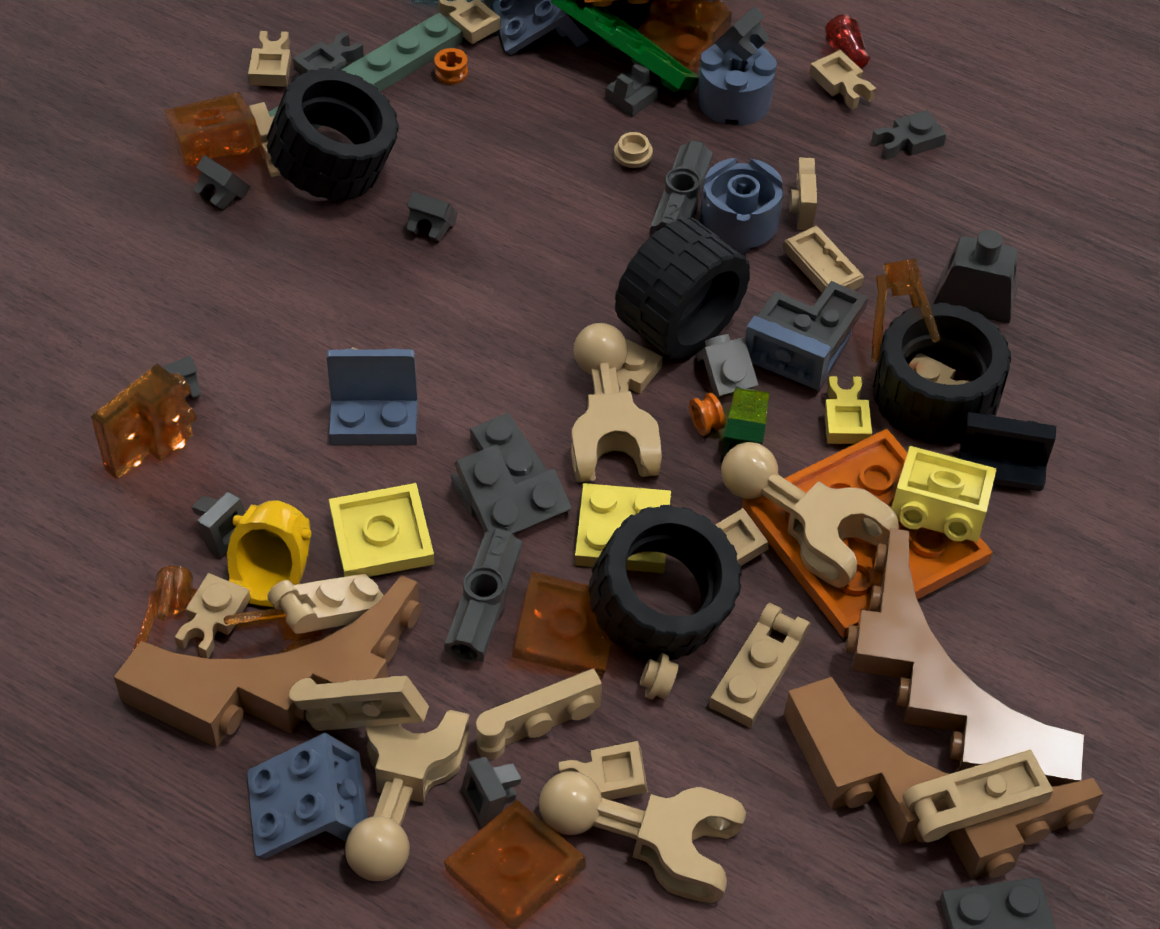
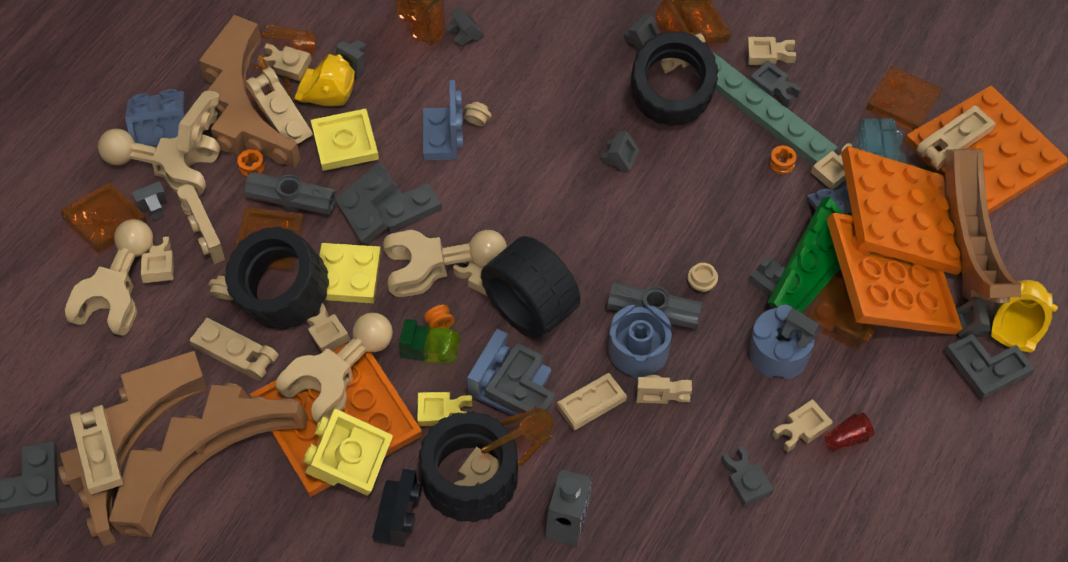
camera: 90 degrees right, 5 degrees up
(414, 645) = (245, 159): none -> orange bush
(727, 364) = (481, 329): light grey bracket -> none

